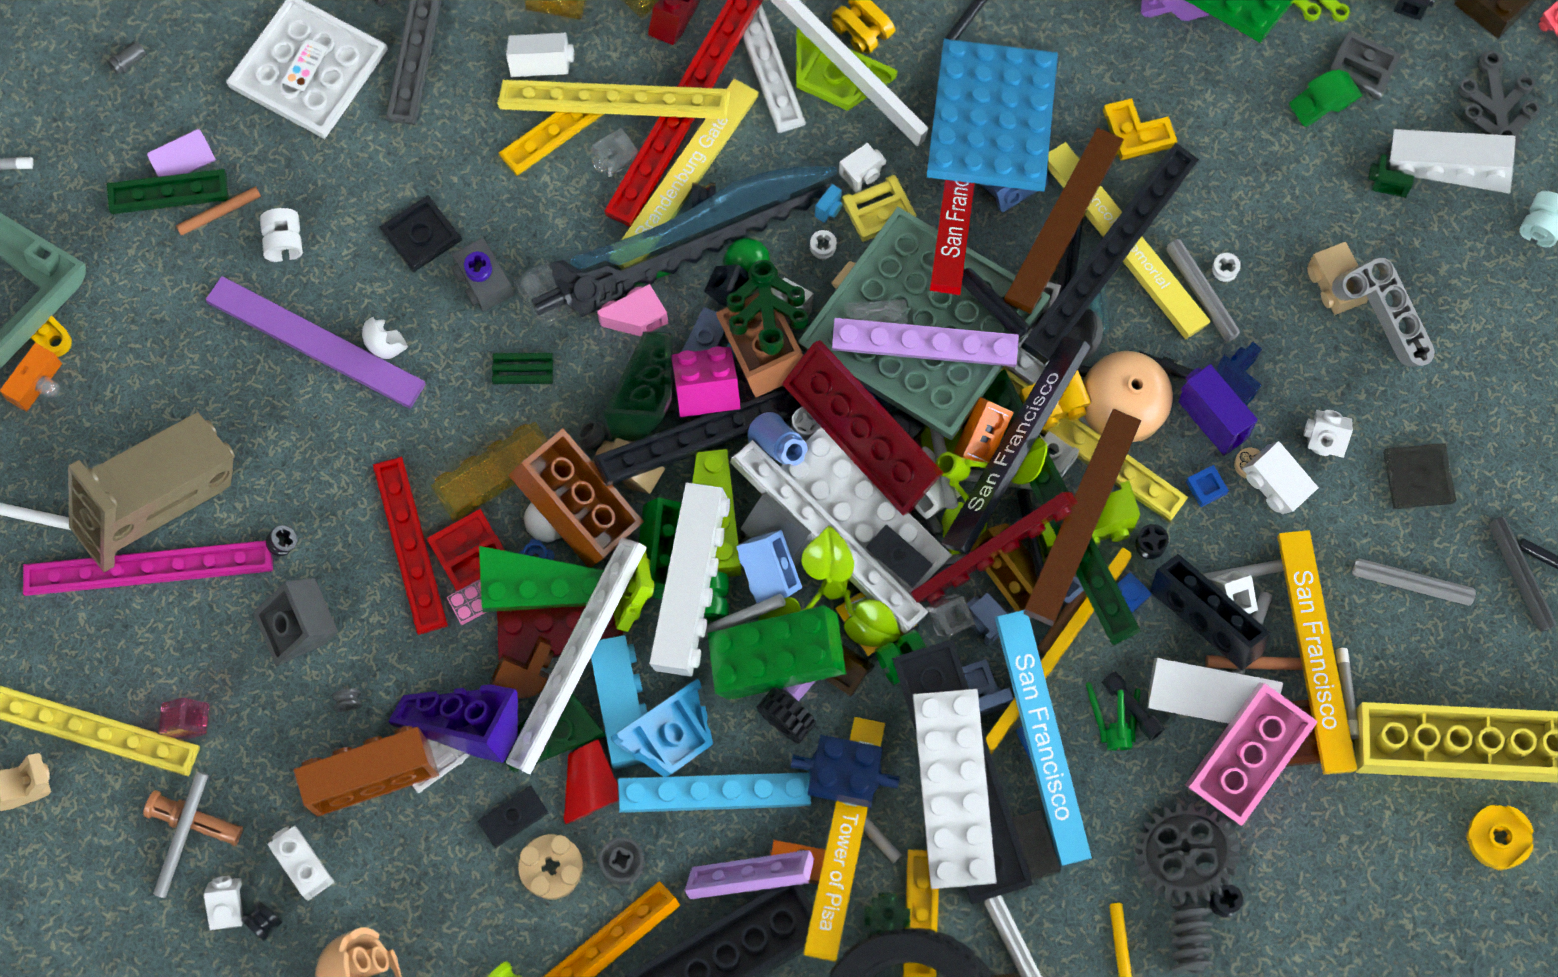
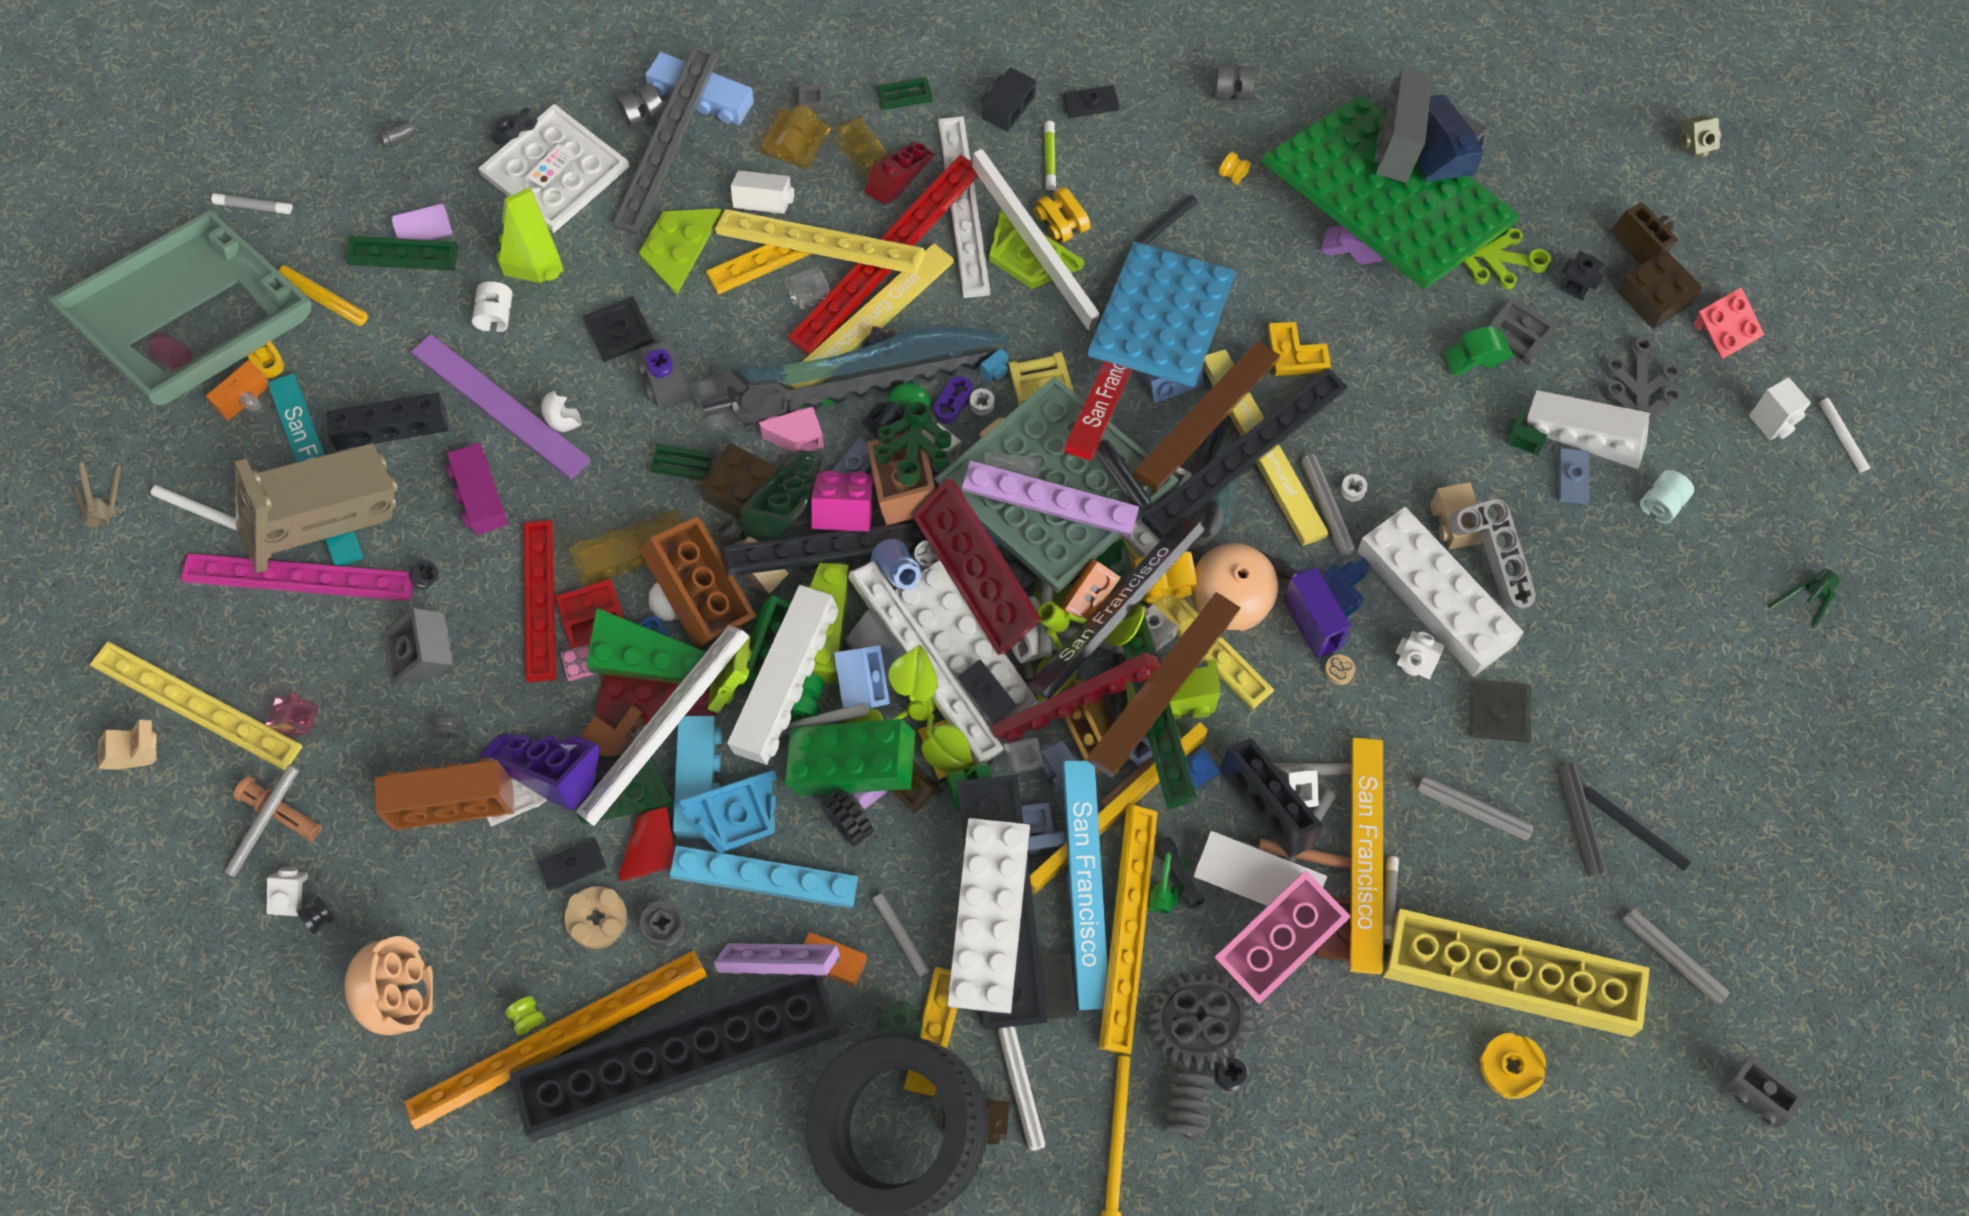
camera: 10 degrees right, 5 degrees down
(96, 255) = (325, 297): none -> yellow axle
(123, 429) = (307, 446): none -> teal tile
(200, 381) = (387, 421): none -> black brick
(218, 211) = (443, 278): nougat bar -> none
(250, 28) = (510, 127): none -> black plate
(300, 862) = (364, 868): white brick -> none
(305, 158) = (526, 241): none -> lime wedge
(314, 438) = (476, 489): none -> magenta brick
(460, 127) = (678, 243): none -> lime wing
(588, 379) = (735, 479): none -> dark brown brick
(798, 250) = (948, 397): none -> dark purple beam
(839, 862) = (874, 945): yellow tile -> none
(845, 771) = (890, 879): dark blue plate -> none
(861, 167) = (1032, 339): white brick -> none
(1094, 774) = (1128, 930): none -> yellow tile
(1152, 535) = (1231, 717): black wheel -> none
(1207, 486) = (1294, 682): blue plate -> none
(1279, 478) = (1364, 687): white brick -> none
(1335, 362) = (1439, 591): none -> white brick
(1447, 213) = (1573, 476): none -> sand blue plate

